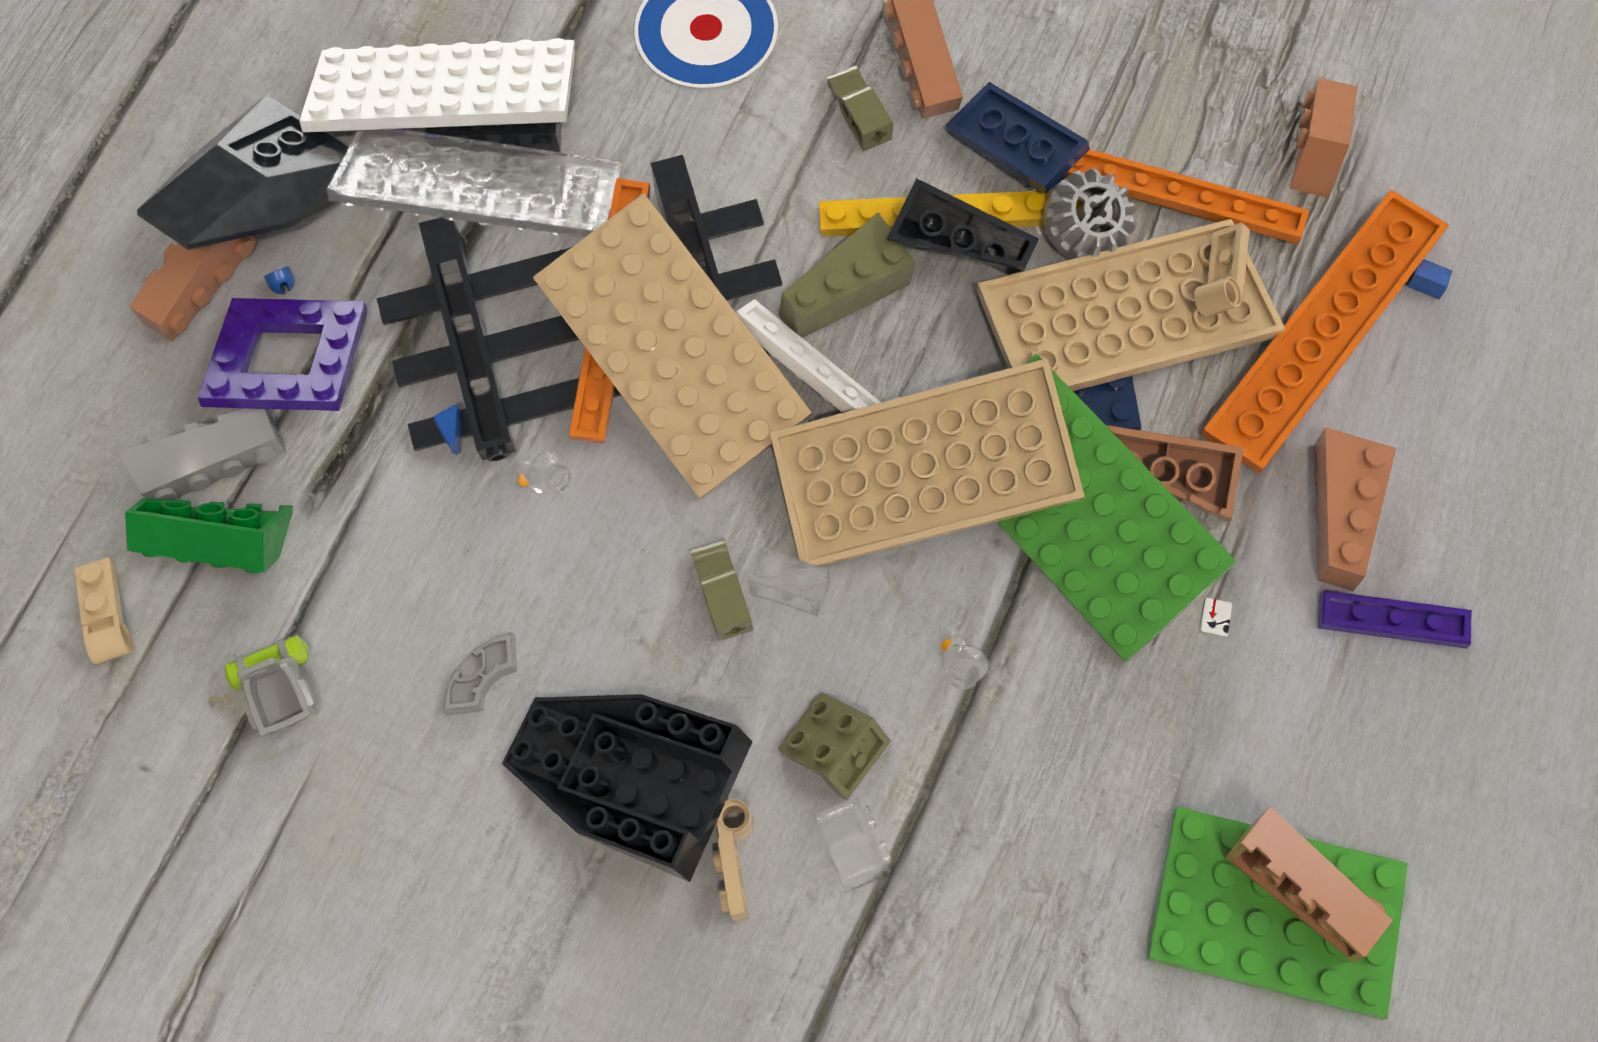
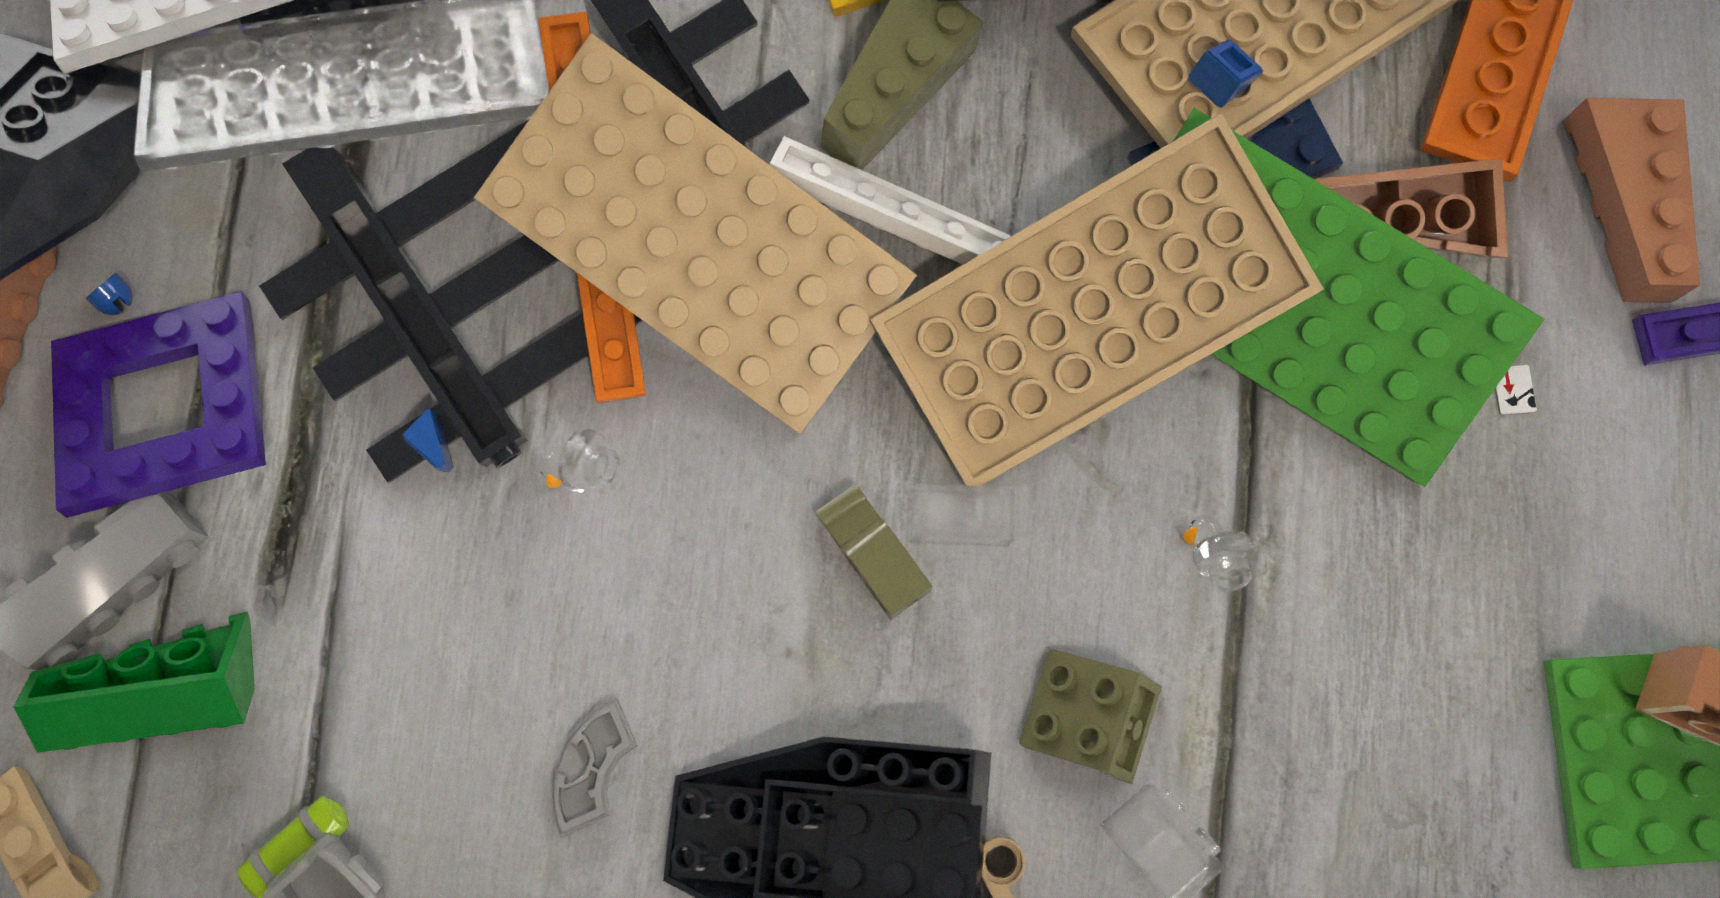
camera: 20 degrees left, 10 degrees up
(1071, 340) = (1224, 72): none -> blue slope

